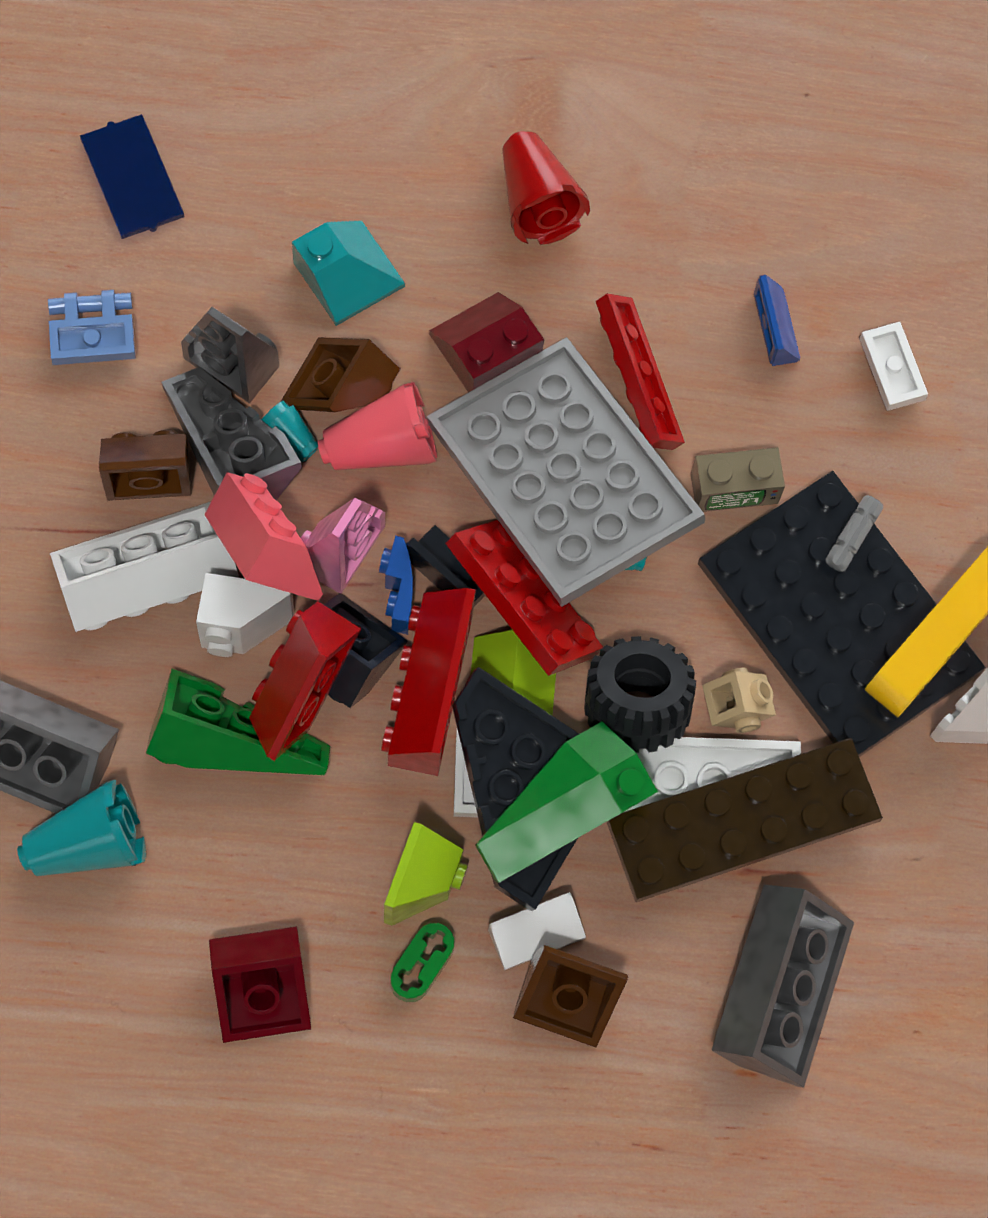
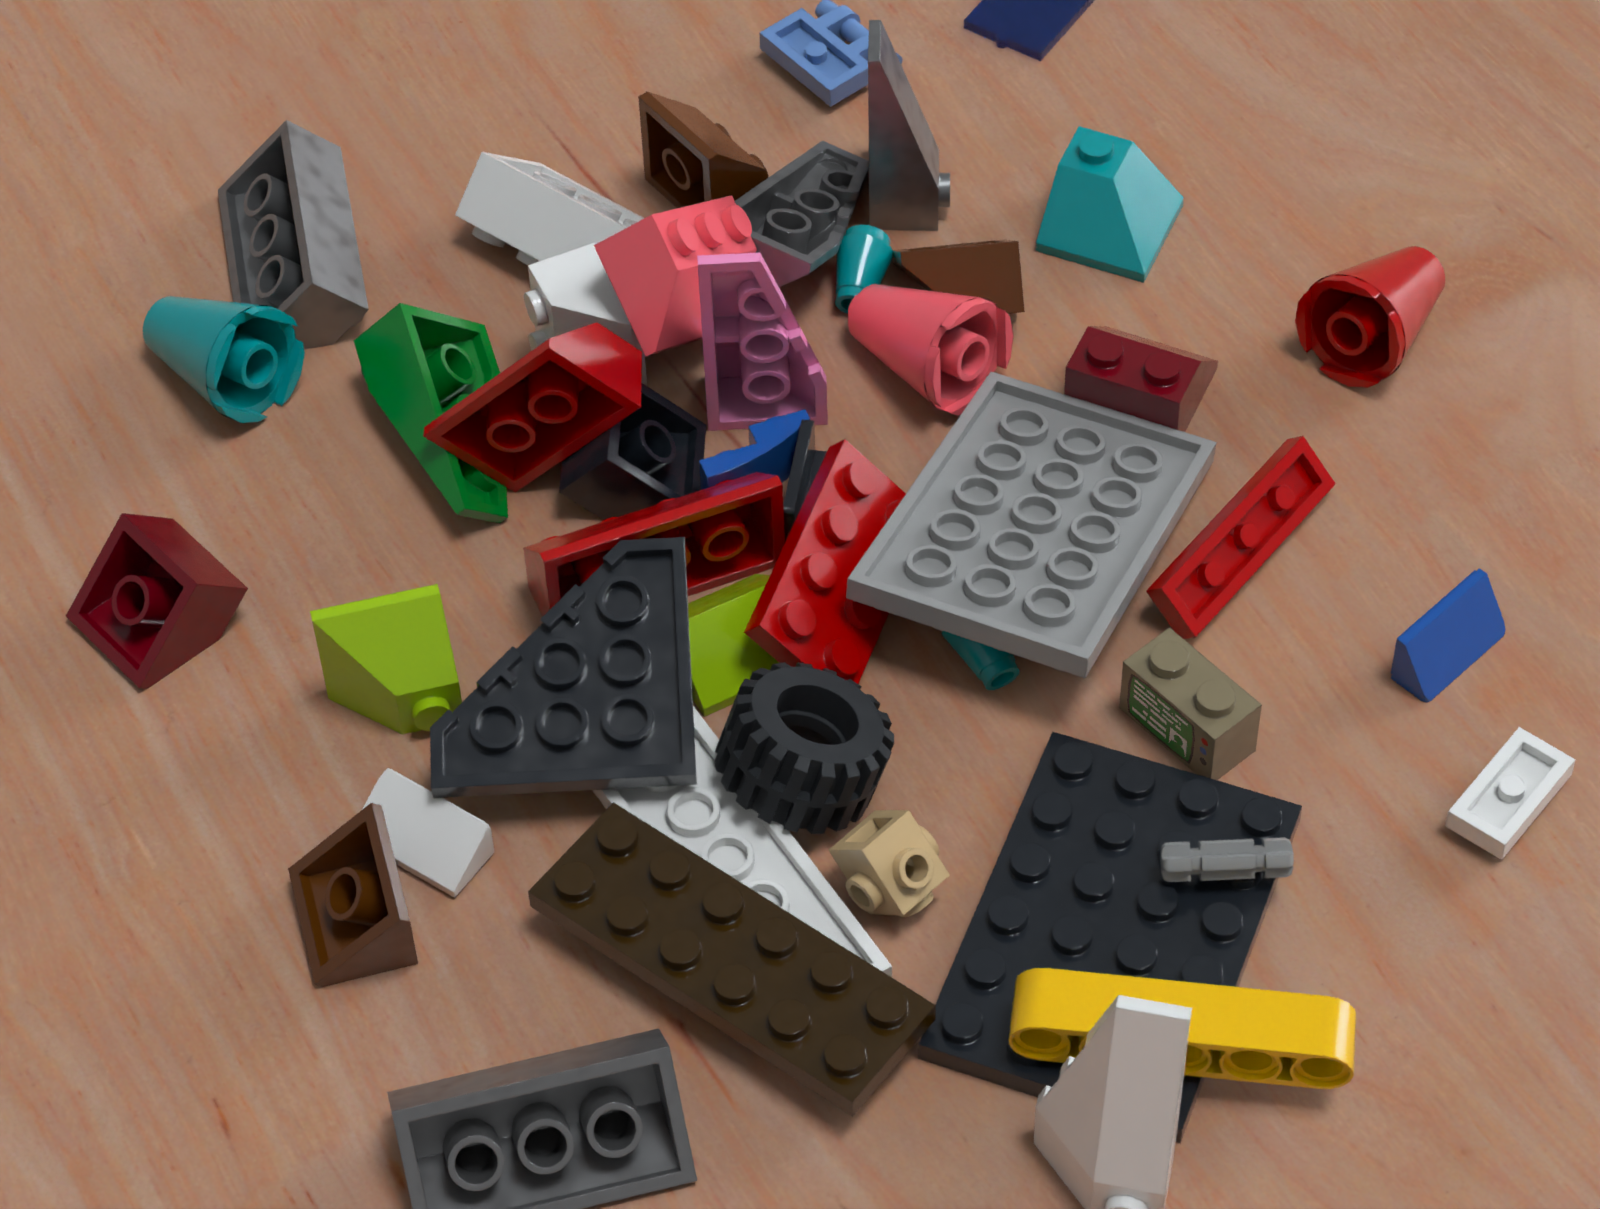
camera: 65 degrees right, 20 degrees down
(413, 956) = (297, 744): green beam -> none
(574, 793) = (599, 734): green wedge -> none

